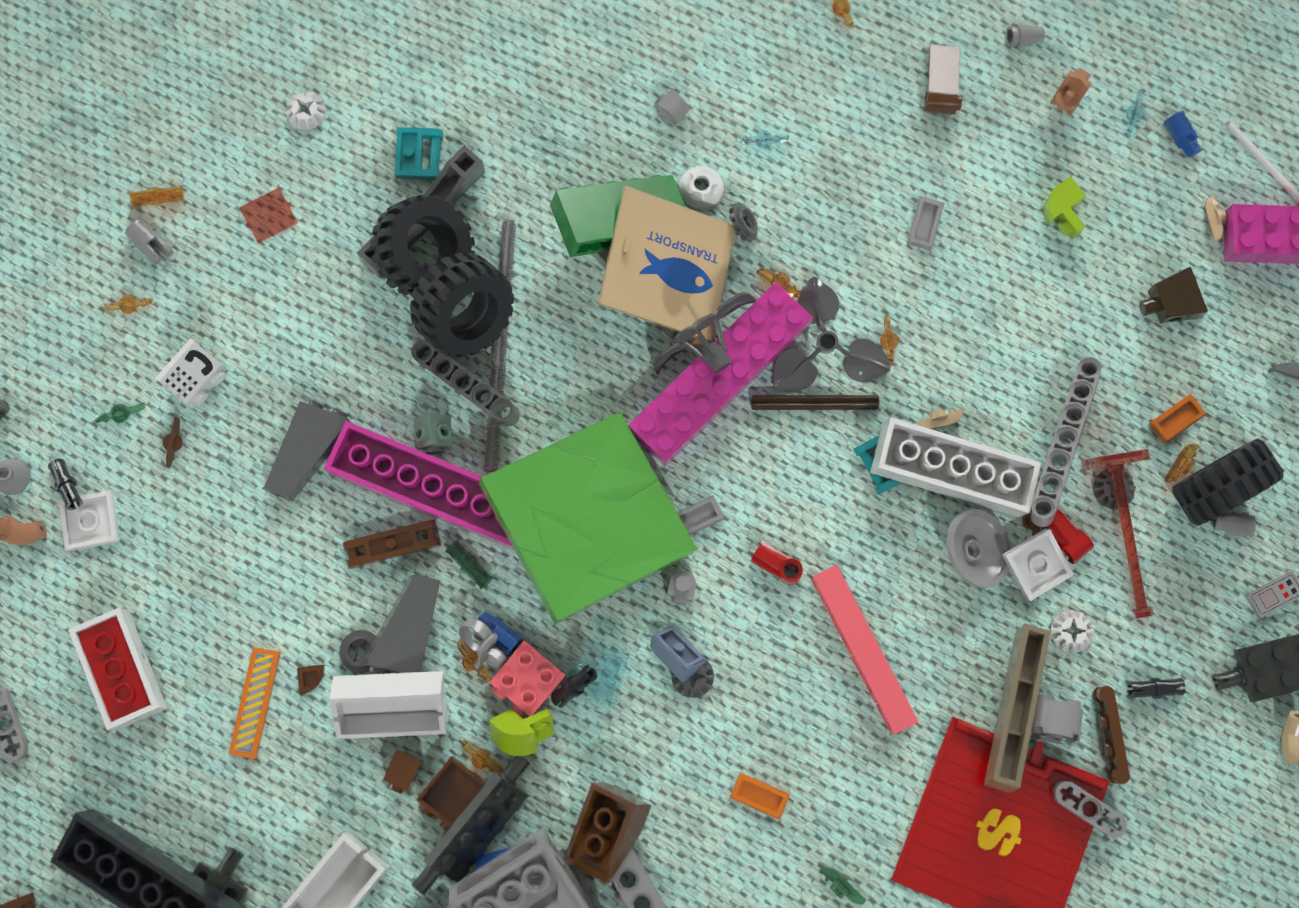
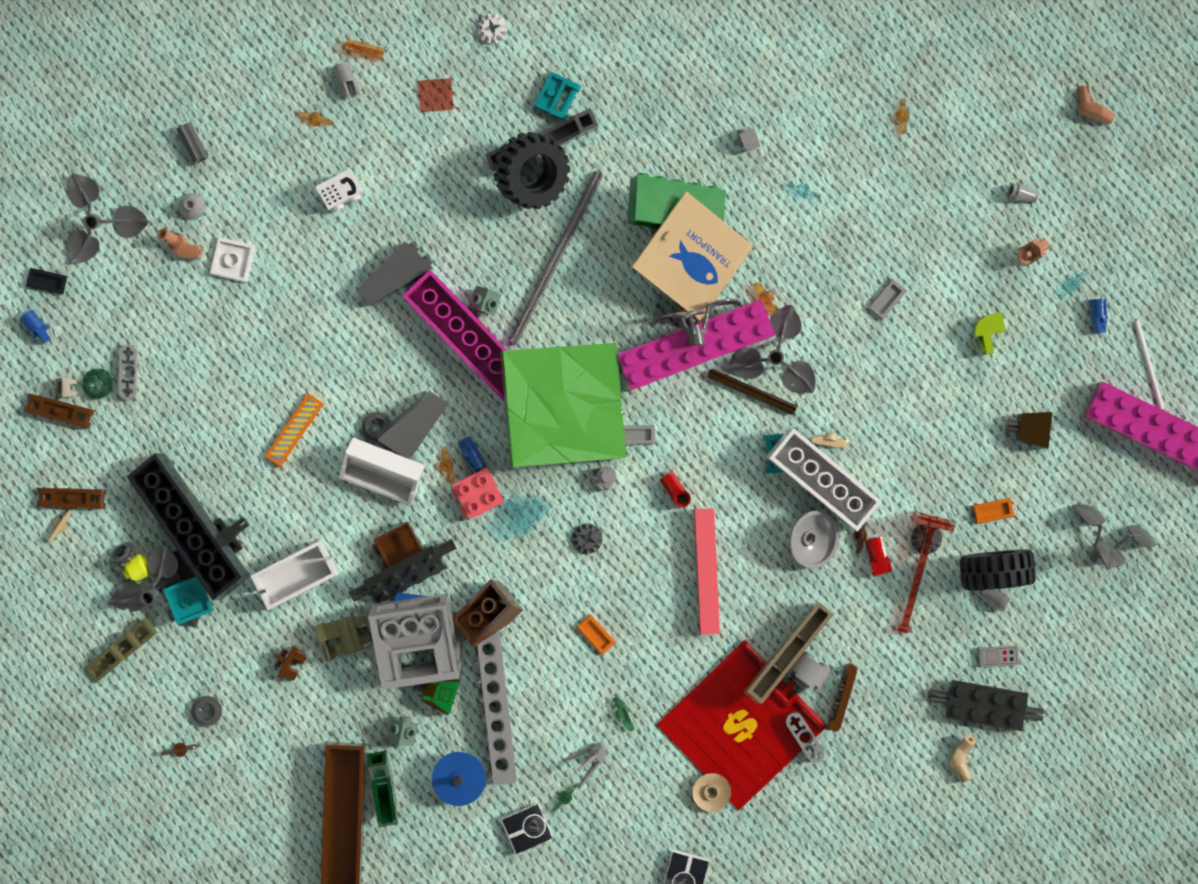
camera: 30 degrees right, 10 degrees up
(65, 484) = (226, 228): black pin -> none
(117, 669) = (214, 370): brick -> none
(120, 413) = (281, 193): clear green piece -> none
(172, 442) = (308, 229): reddish brown piece -> none
(309, 678) = (336, 429): reddish brown tile -> none
(391, 544) = (426, 364): reddish brown plate -> none
(402, 771) = (372, 517): reddish brown brick -> none
(441, 292) = (540, 224): black tyre -> none
(469, 564) = (467, 388): clear green pin -> none
(475, 389) = (516, 268): dark grey beam -> none
(481, 757) = (426, 530): clear orange piece -> none
(485, 651) = (458, 462): light grey piece -> none
(520, 736) = (457, 528): lime brick -> none
(574, 686) = (506, 511): black pin -> none
(676, 653) = (583, 519): sand blue slope -> none
(699, 199) = (742, 216): white piece -> none
(743, 222) = (760, 245): dark grey gear -> none
(889, 340) = (823, 370): clear orange piece -> none
(943, 80) = (948, 201): door -> none
(1037, 564) = (849, 566): white tile -> none
(1063, 639) = (848, 611): white gear -> none
(1065, 452) = (911, 485): light grey beam -> none
(1156, 688) = (887, 681): black pin -> none
(1182, 463) = (981, 542): clear orange piece -> none
(1216, 218) = (1090, 384): tan piece -> none

